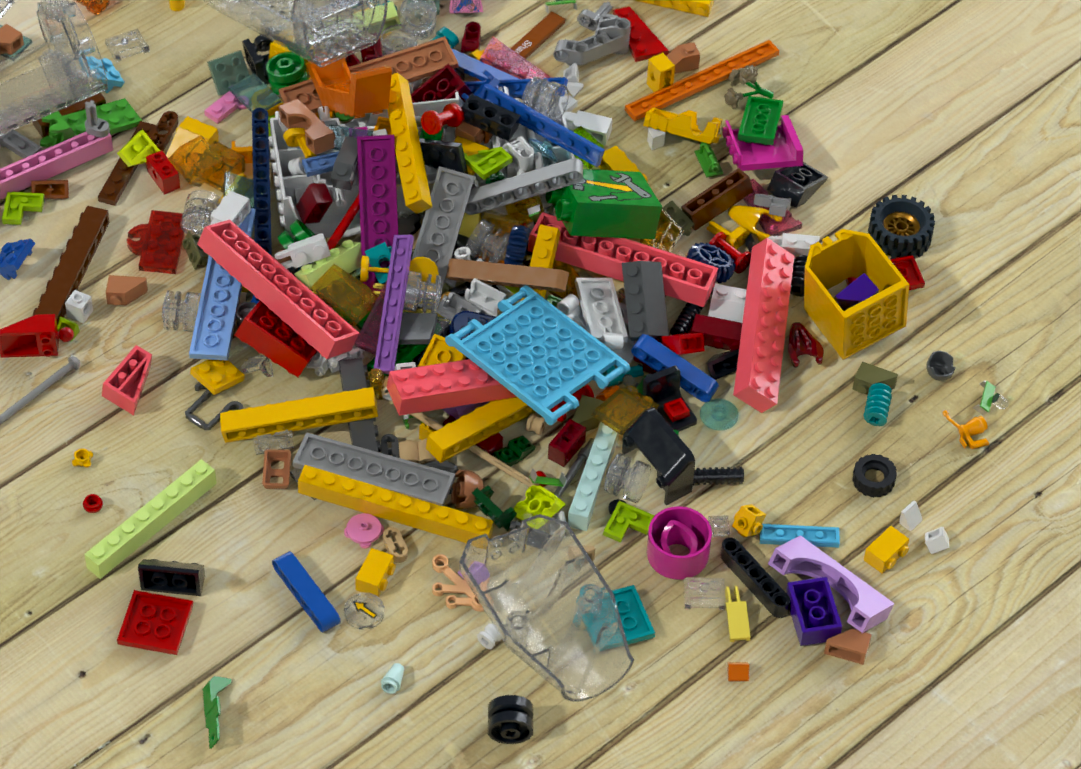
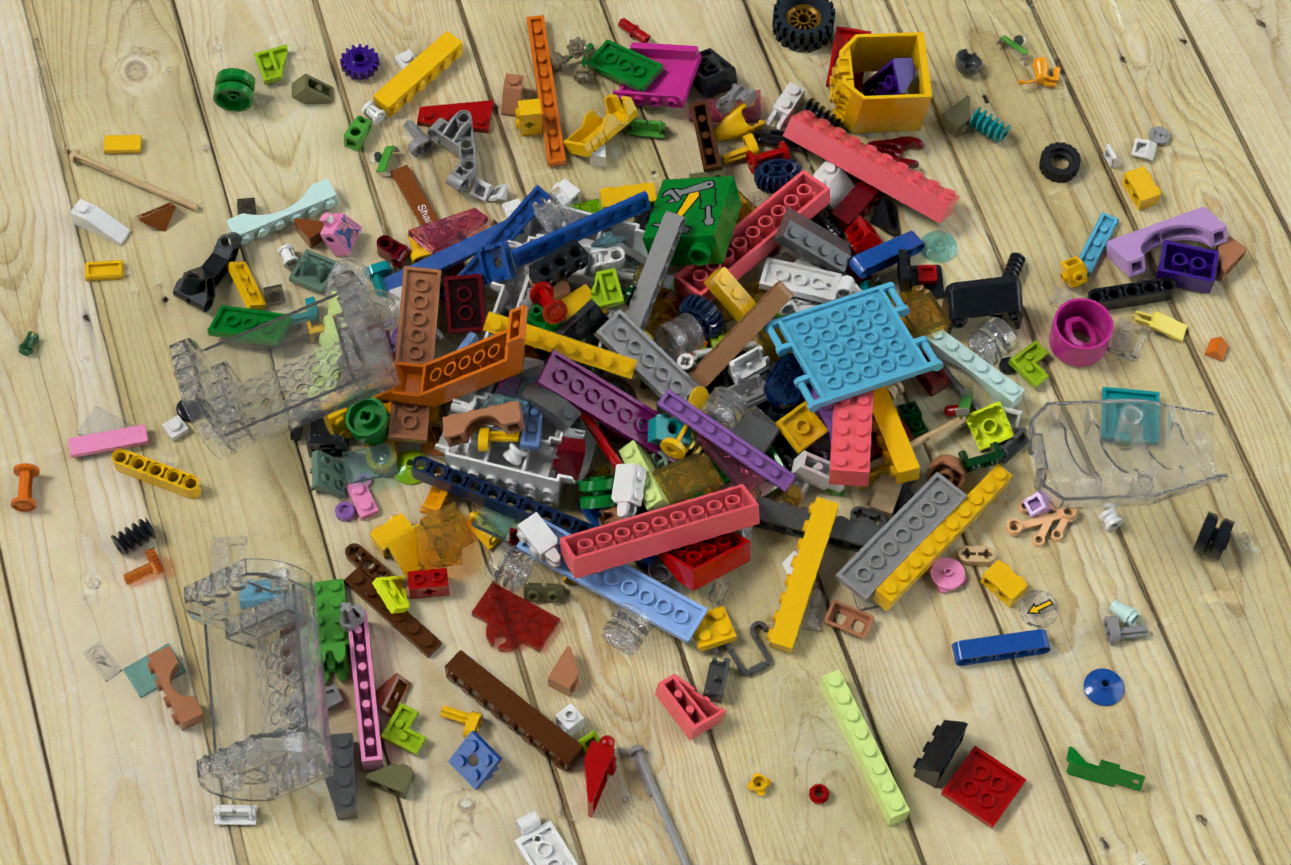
camera: 65 degrees left, 10 degrees up
(49, 243) = (471, 720): none -> yellow piece
(169, 396) = (716, 679): none -> dark grey hinge
(205, 100) = (345, 511): none -> medium lavender tile
(311, 695) = (1098, 693): none -> blue dish
(367, 676) = (1115, 633): none -> light grey piece
(807, 118) = (634, 30): none -> red axle
(963, 549) = (1159, 135): none -> light grey piece

